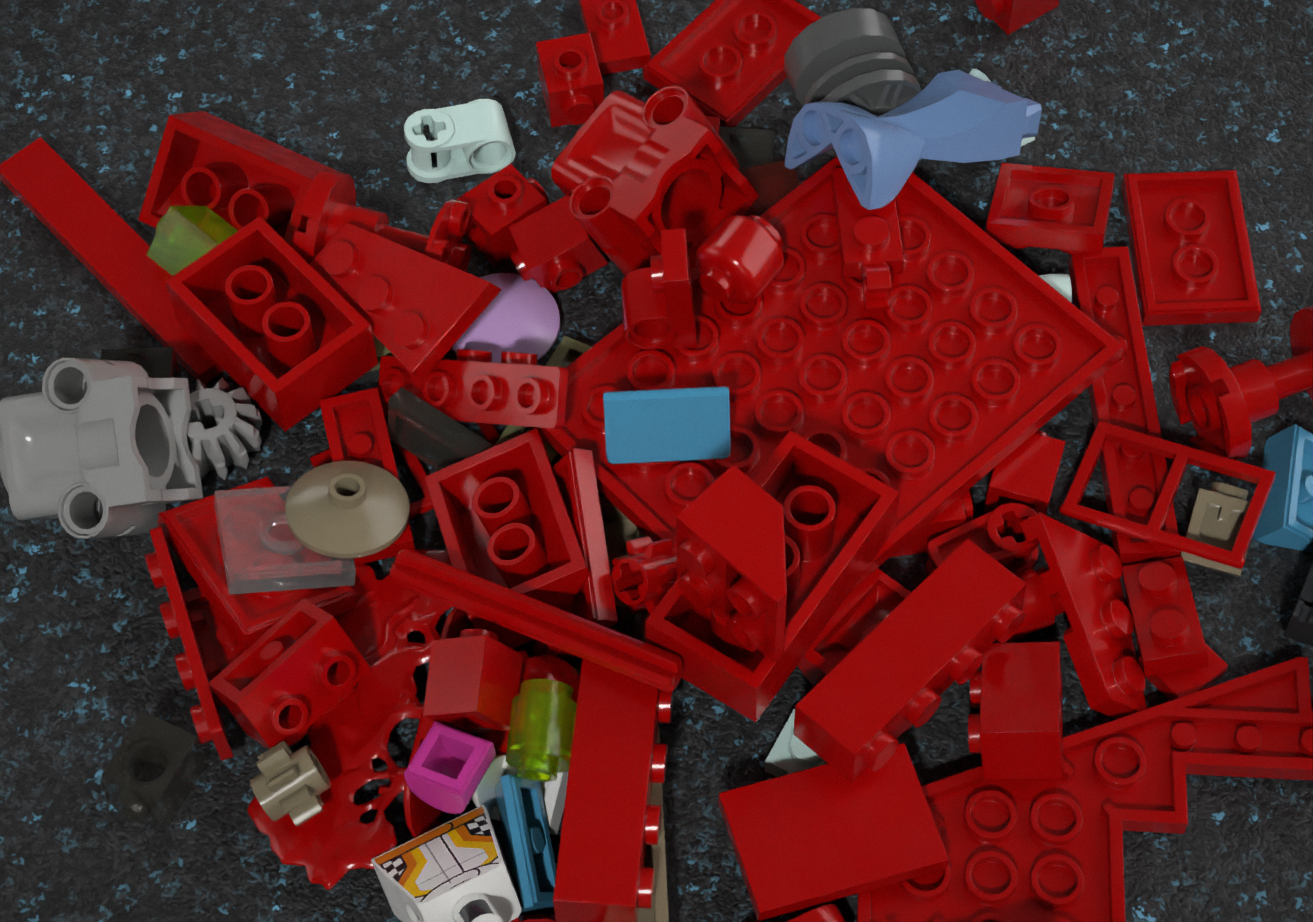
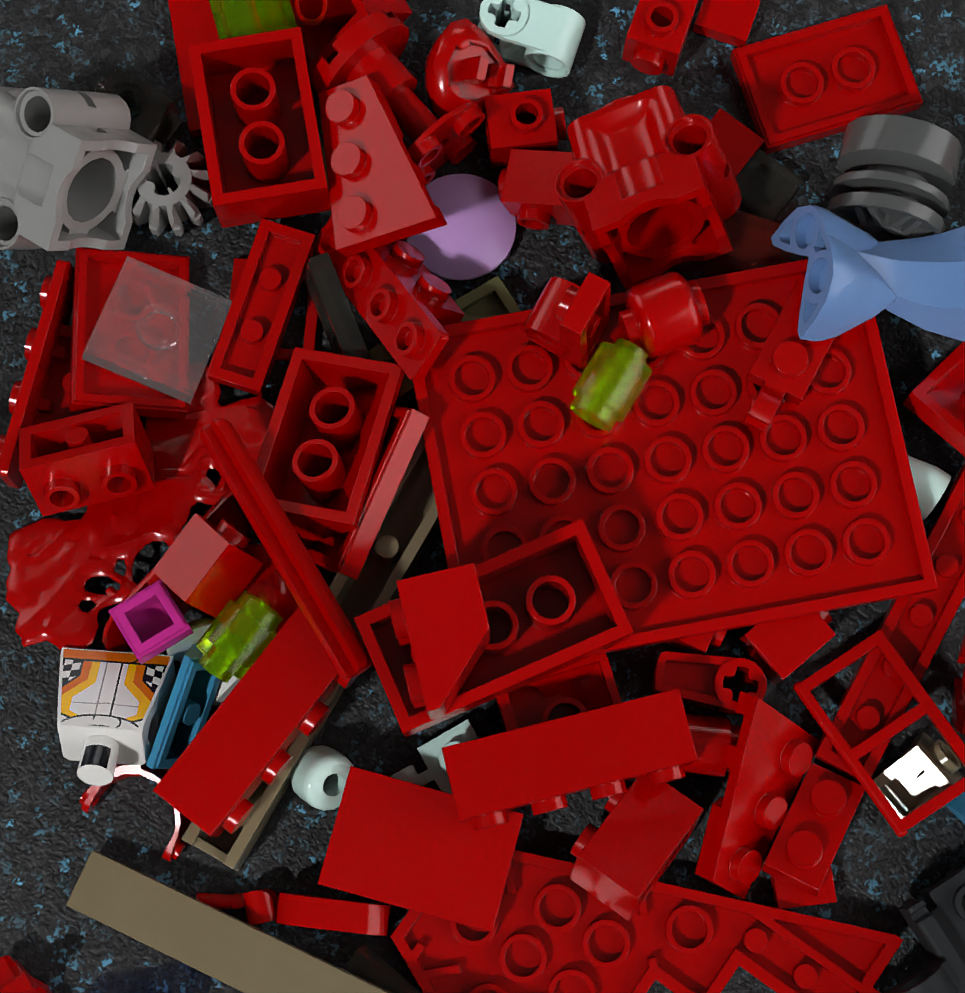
camera: 30 degrees right, 20 degrees up
(290, 783) = (36, 548): dark tan gear -> none
(347, 509) = (215, 359): dark tan dish -> none
(418, 188) = (464, 68): none -> red piece
(645, 573) = (407, 551): red gear -> none
(667, 425) = (502, 434): dark azure slope -> none
(696, 833) = (321, 777): none -> light aqua piece
(733, 335) = (610, 383): none -> clear neon green brick

